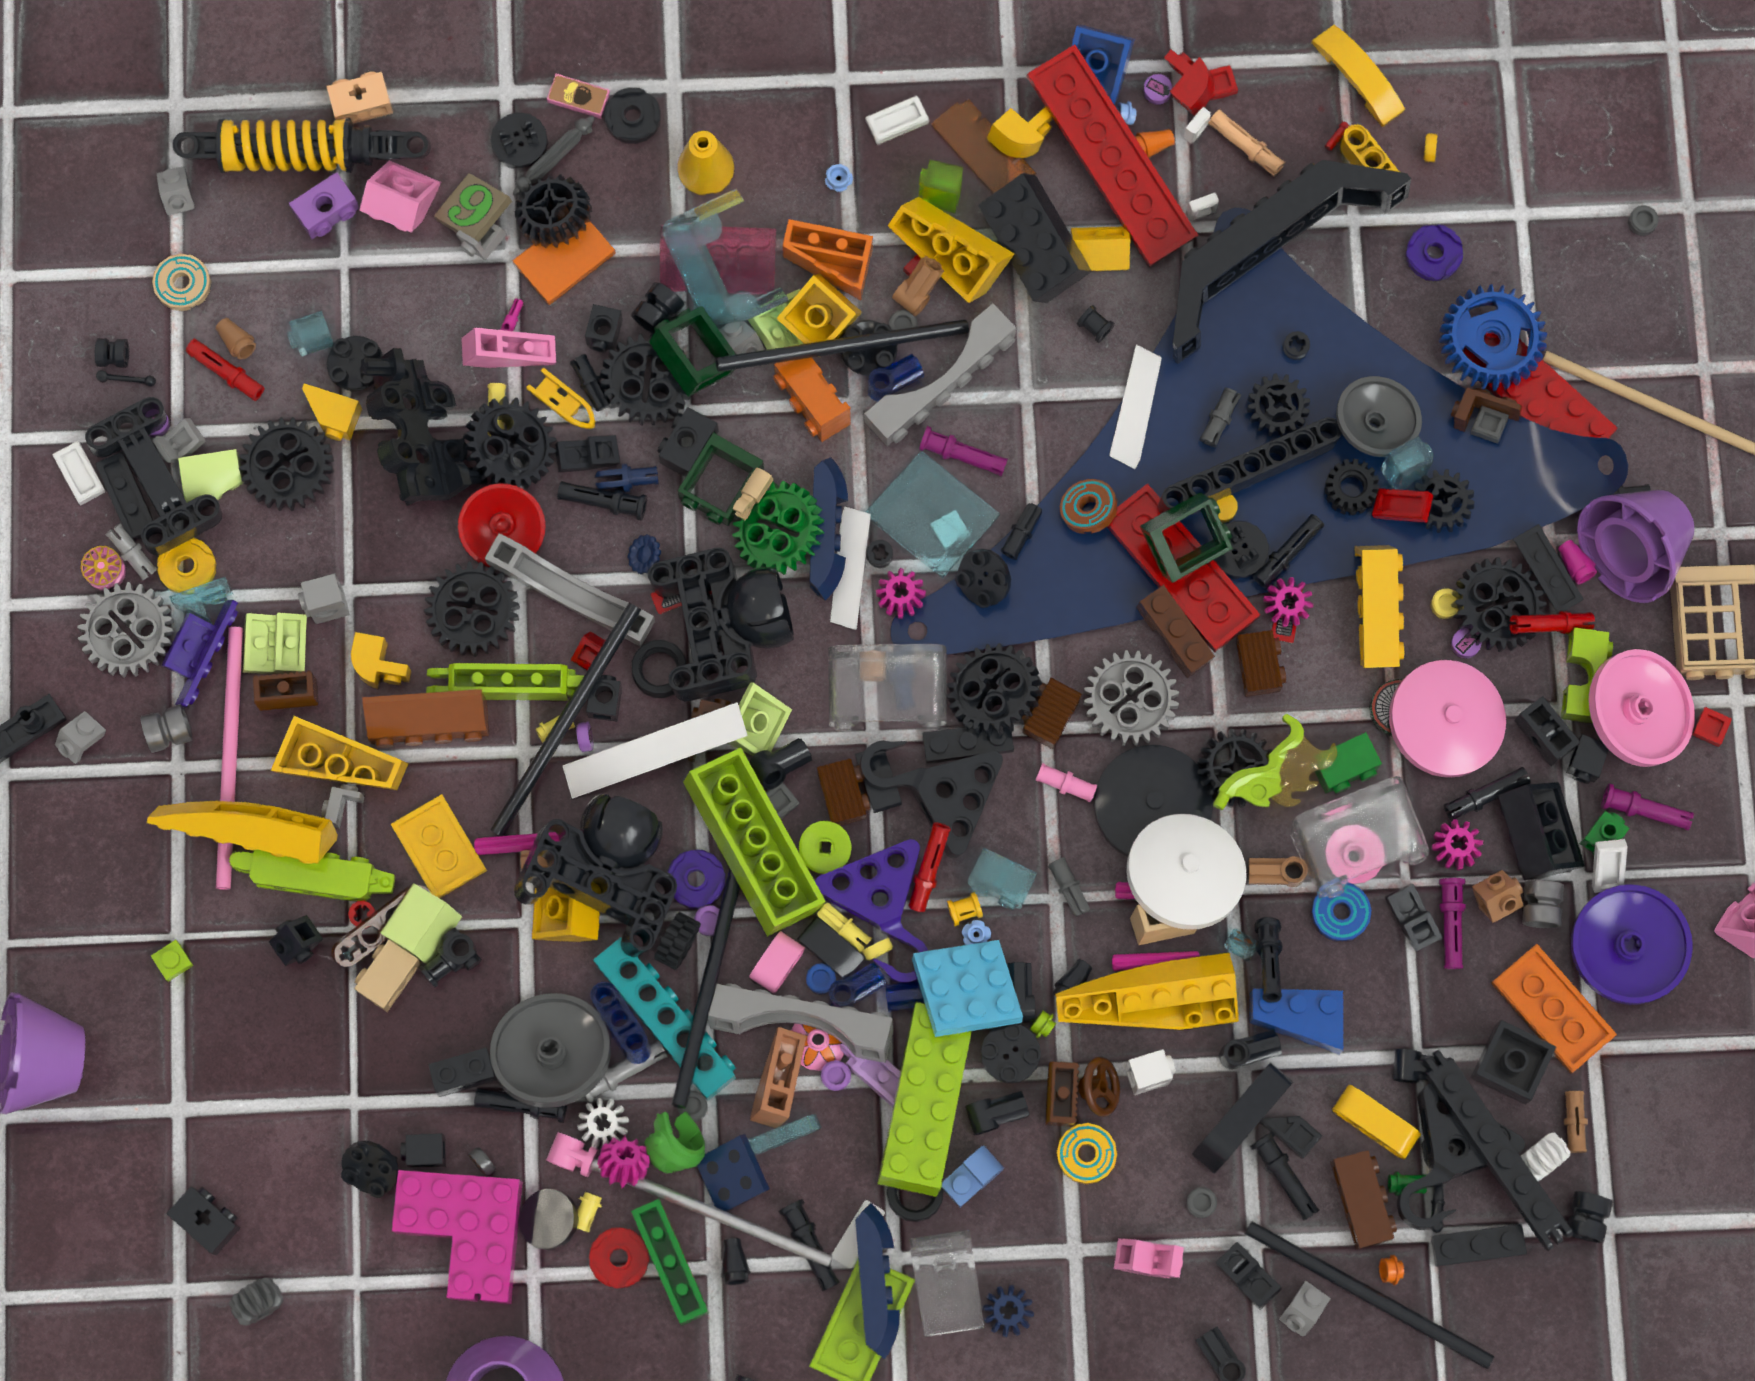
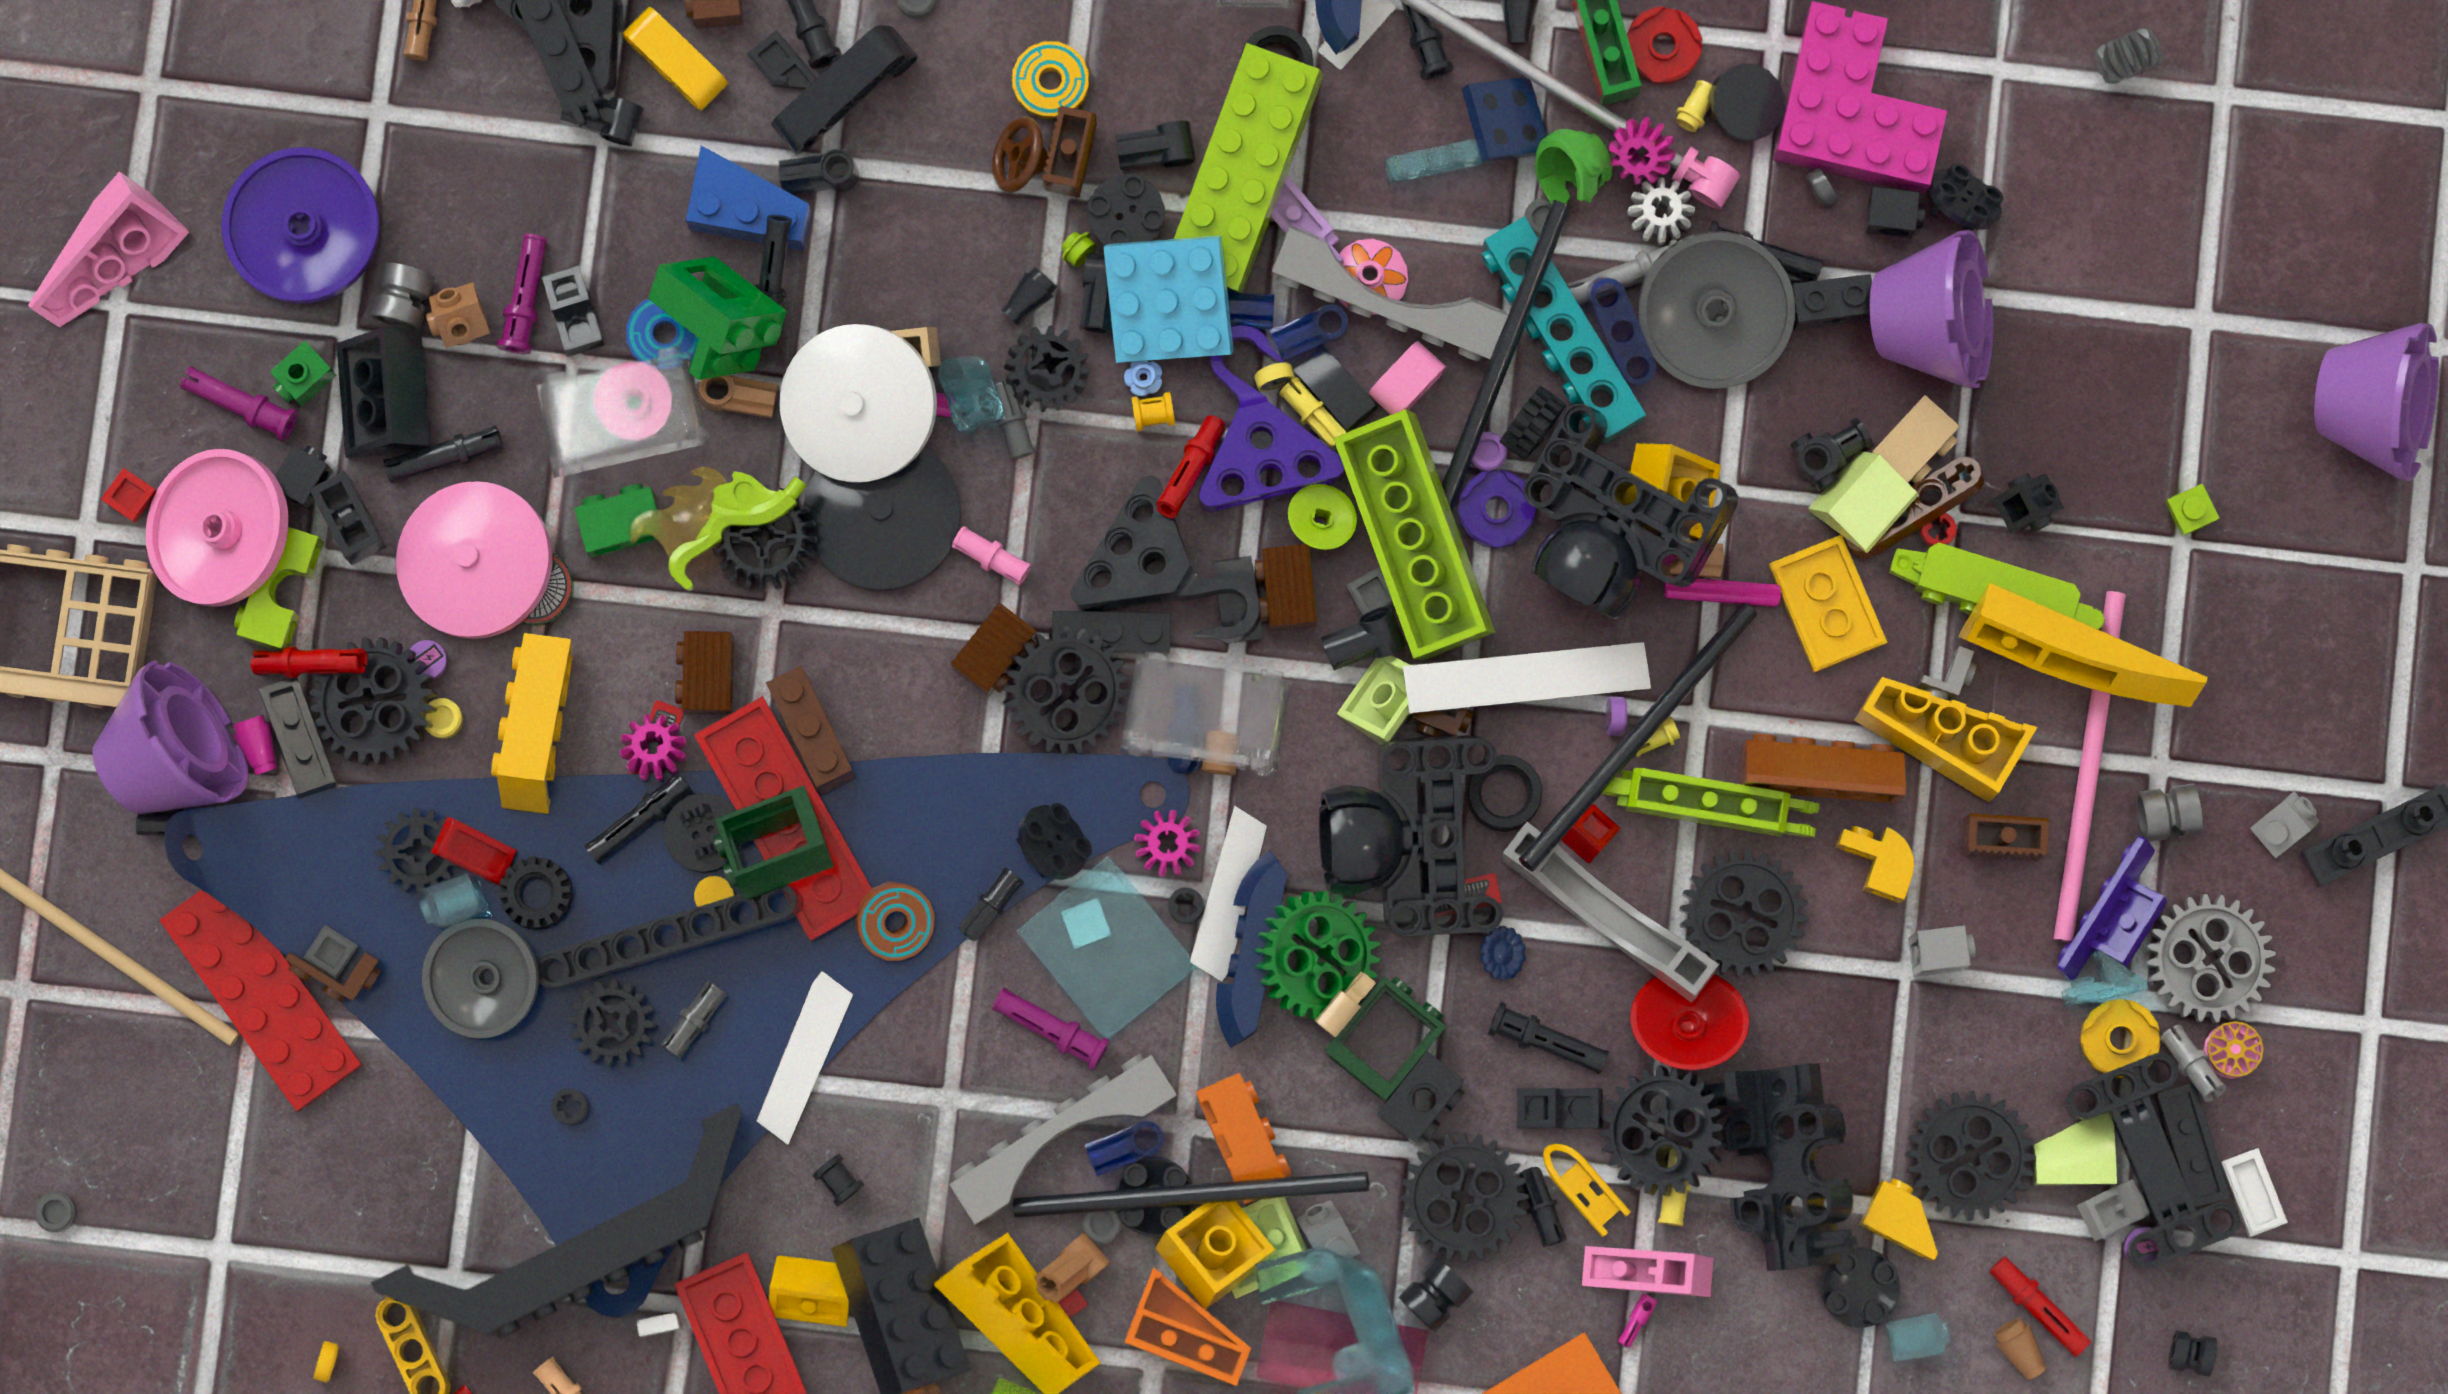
camera: 170 degrees left, 5 degrees up
(103, 376) = (2208, 1326): black hinge -> none
(187, 1214) = (2179, 150): black brick -> none
(274, 643) = (2013, 911): yellowish green slope -> none
(381, 1068) = (1935, 311): none -> medium lavender cone
(600, 317) = (1501, 1292): black brick -> none
(605, 711) = (1577, 746): black brick -> none
(630, 477) = (1513, 1063): dark blue arm -> none
(677, 362) = (1423, 1209): dark green window -> none
(778, 1079) = (1427, 229): nougat slope -> none
(820, 978) = (1354, 353): blue tile -> none
(835, 1075) = (1354, 227): medium lavender tile -> none
(972, 1176) = (1196, 68): medium blue brick -> none
(1001, 879) = (1098, 440): clear light blue brick -> none
(1043, 914) = (1051, 384): none -> black gear
(1105, 901) = (969, 390): none -> clear light blue piece
(1124, 962) = (917, 307): dark pink axle -> none
(1147, 718) = (870, 621): light grey gear -> none
(1150, 1071) = (952, 159): white brick -> none
(1157, 996) = (923, 259): yellow wedge -> none
(1241, 944) = (803, 310): clear light blue slope -> none
(1305, 922) = (722, 311): none -> green brick
(1429, 267) = (376, 1215): dark purple tile -> none
(1457, 834) = (488, 404): dark pink gear -> none
(1506, 322) = (298, 1033): blue gear -> none
(1513, 1062) = (485, 101): black brick -> none
(1554, 1008) = (417, 168): orange tile -> none
(1609, 864) = (306, 328): white tile -> none

